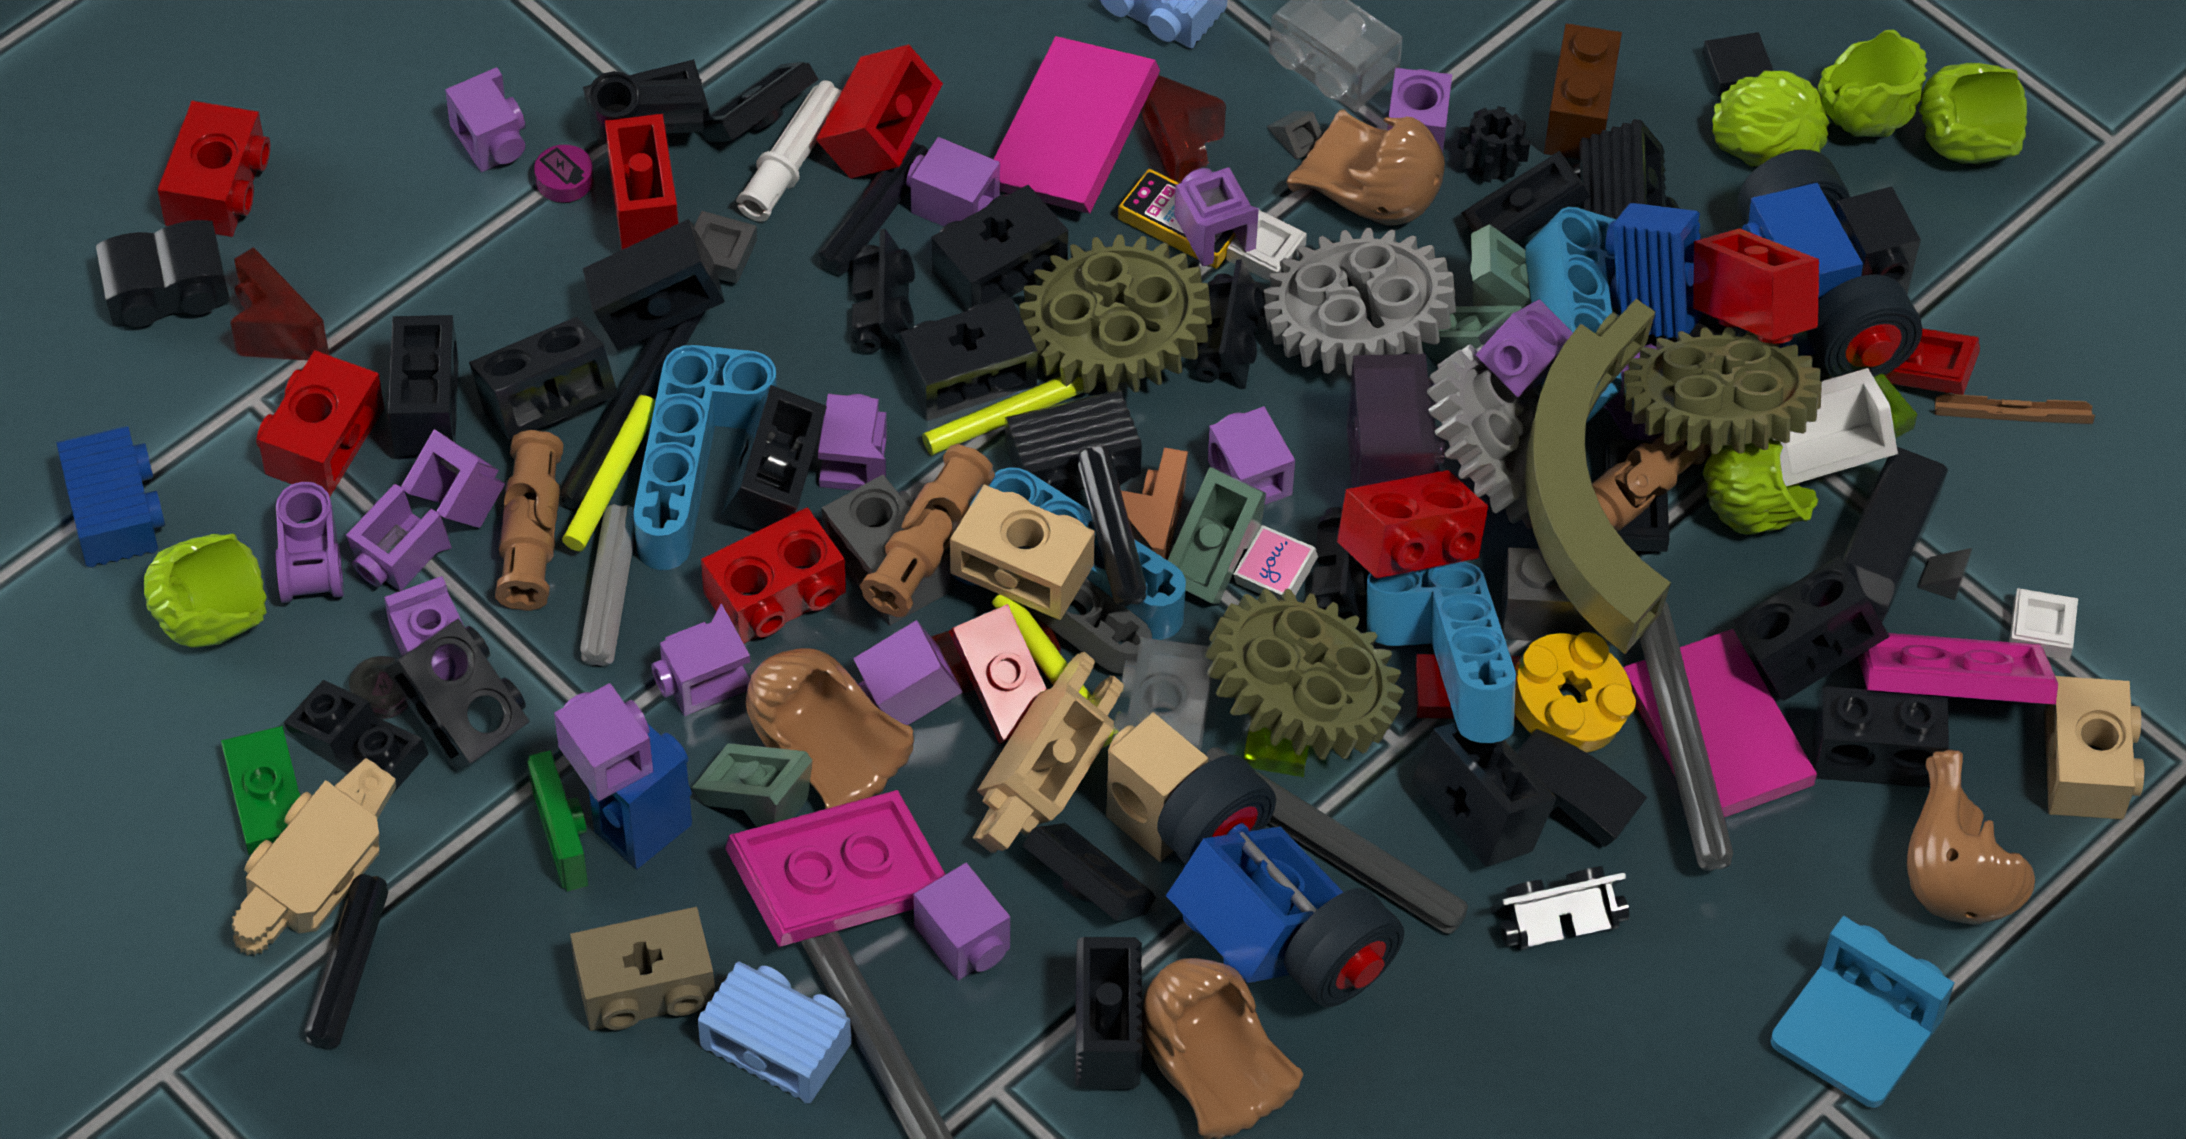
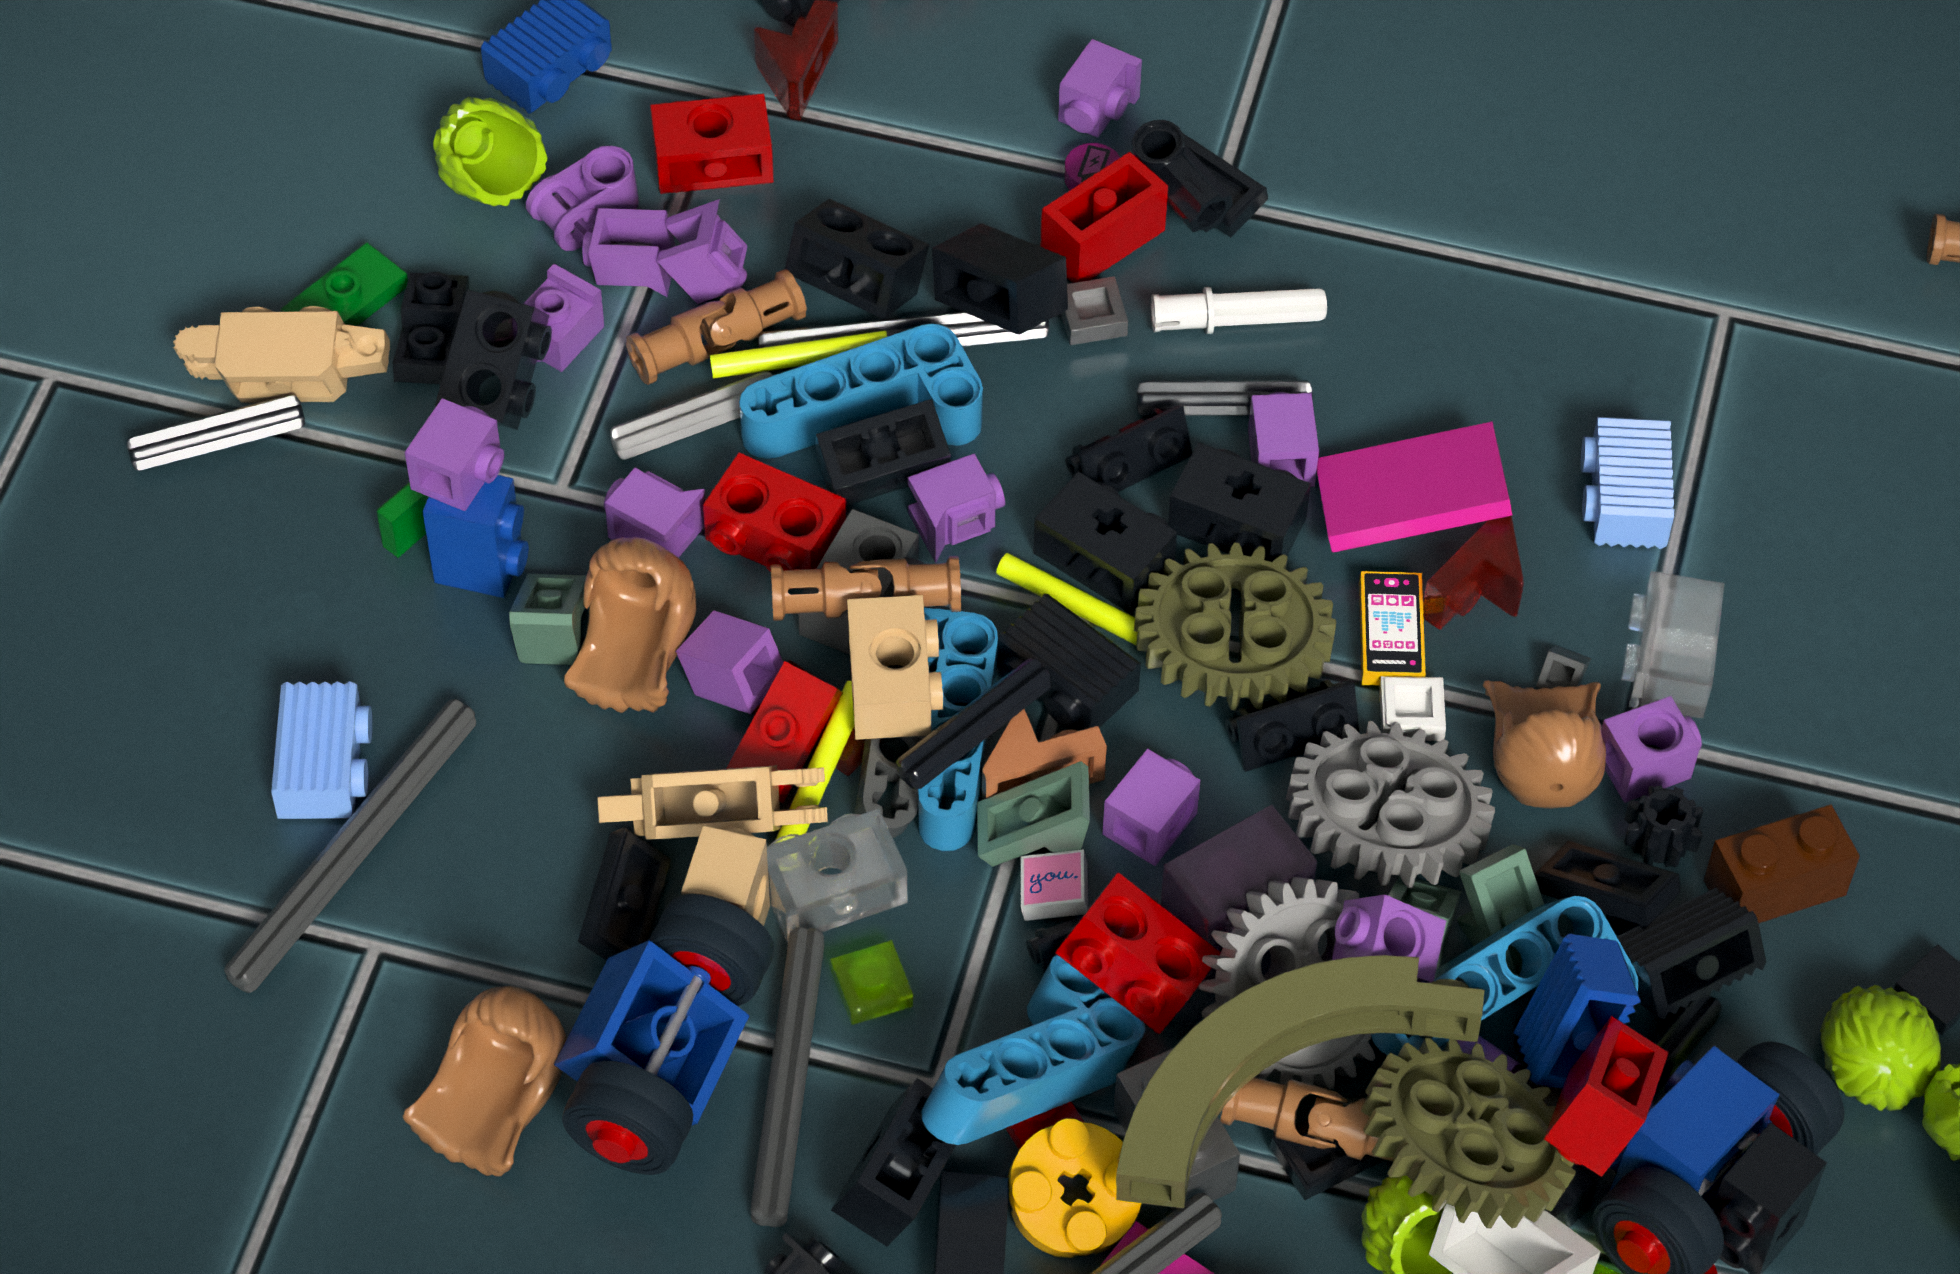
camera: 60 degrees right, 0 degrees up
(422, 381) = (786, 181): black brick -> none
(616, 955) = (321, 626): dark tan brick -> none
(759, 103) = (1264, 260): black plate -> none
(834, 867) = (507, 713): dark pink tile -> none
(879, 111) = (1313, 342): red brick -> none
(962, 922) = (511, 831): medium lavender brick -> none
(1108, 1013) = (453, 975): black brick -> none
(1213, 204) = (1396, 631): medium lavender window -> none
(1304, 673) = (880, 942): olive gear -> none

